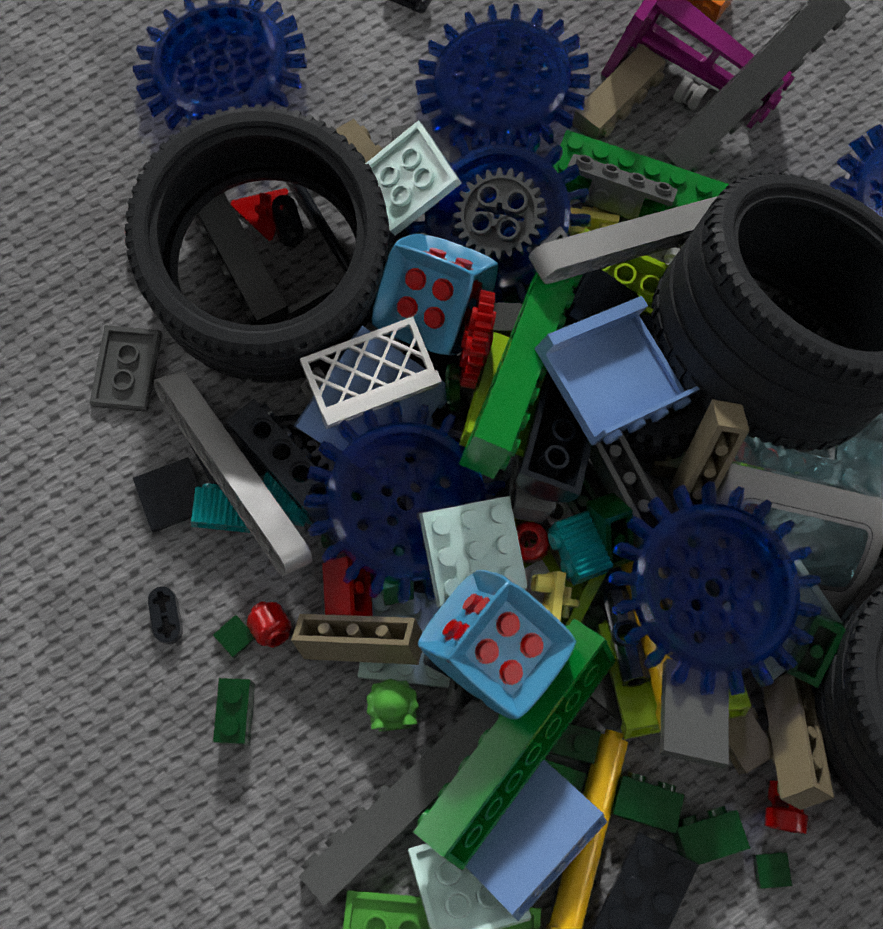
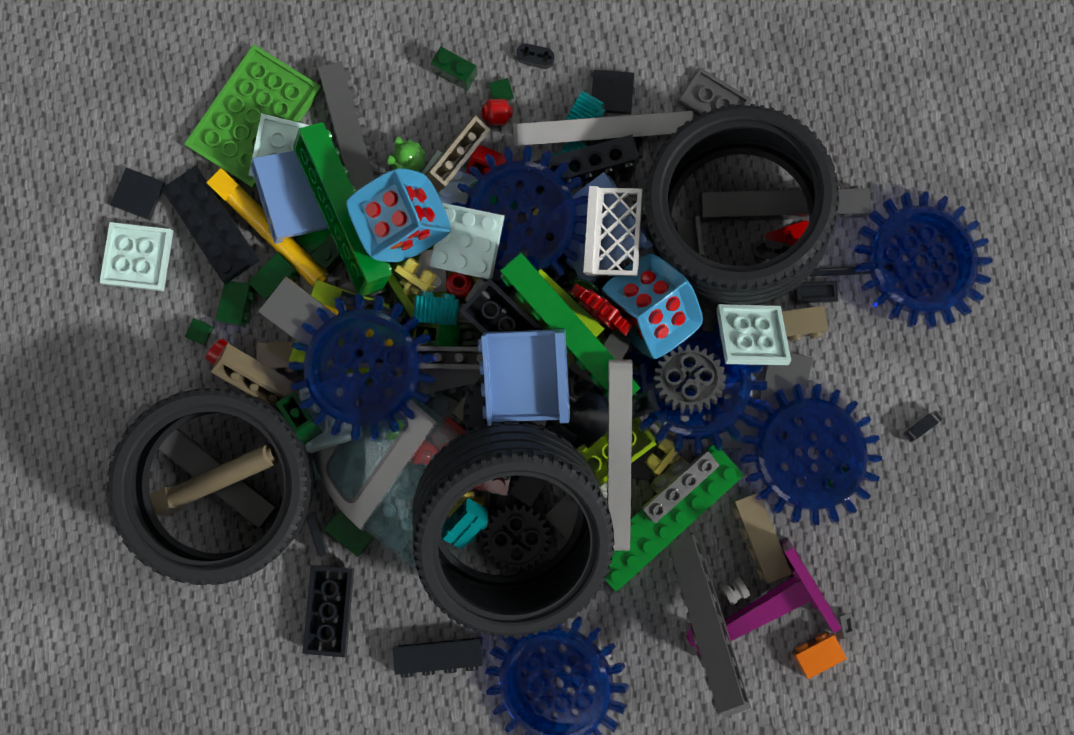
camera: 125 degrees right, 10 degrees up
(711, 449) = (445, 413): dark tan brick -> none

